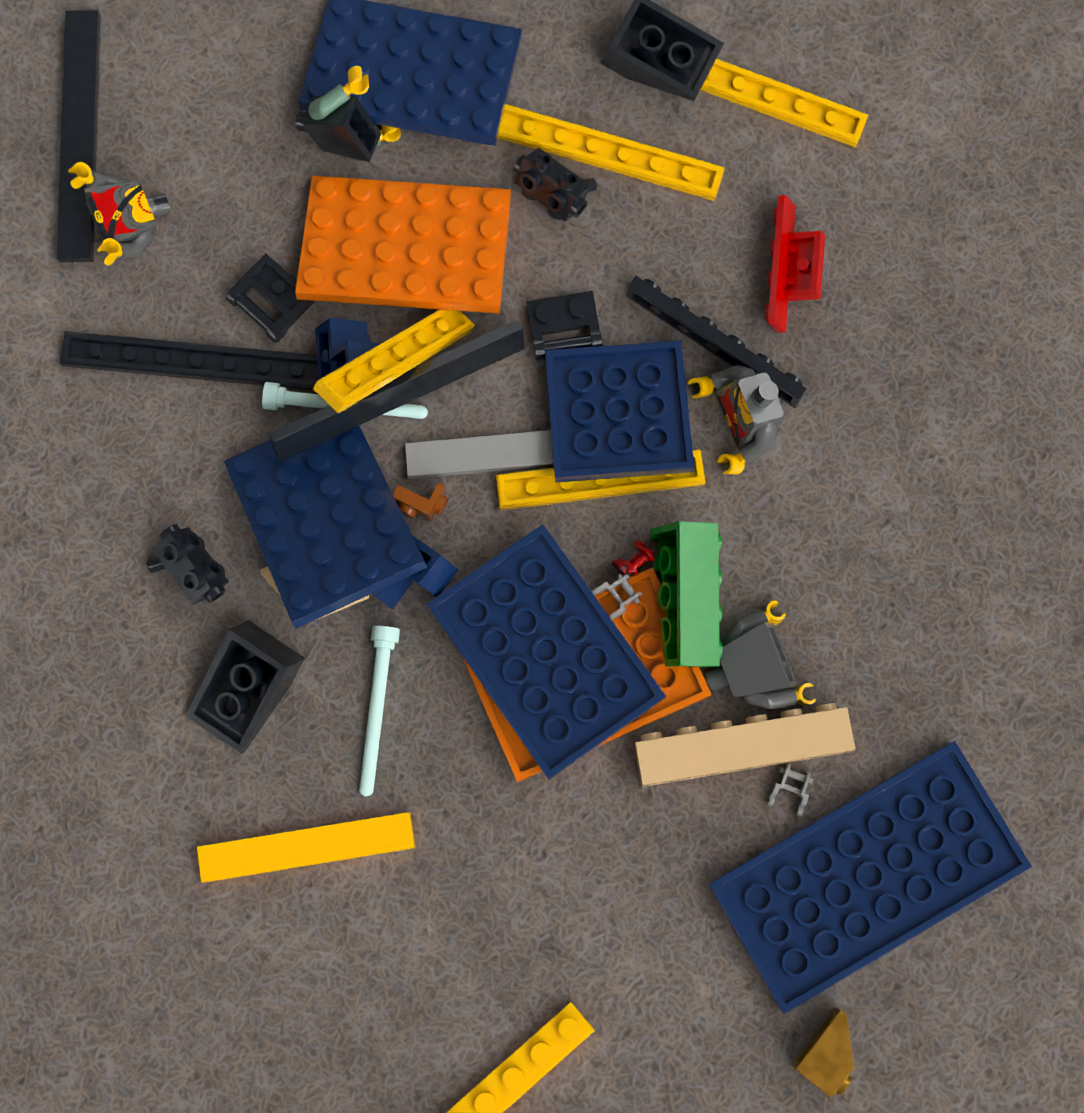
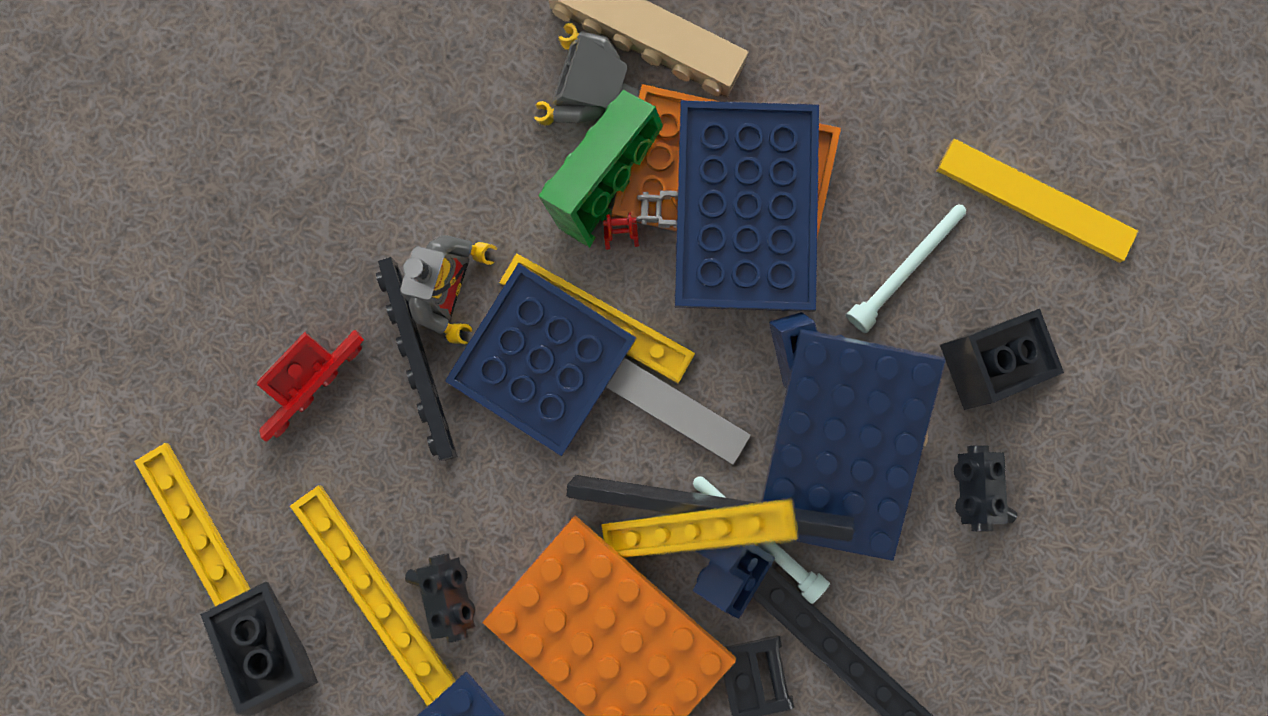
camera: 145 degrees left, 5 degrees up
(414, 504) = (764, 407): dark orange bracket -> none
(563, 315) = (520, 477): black plate -> none

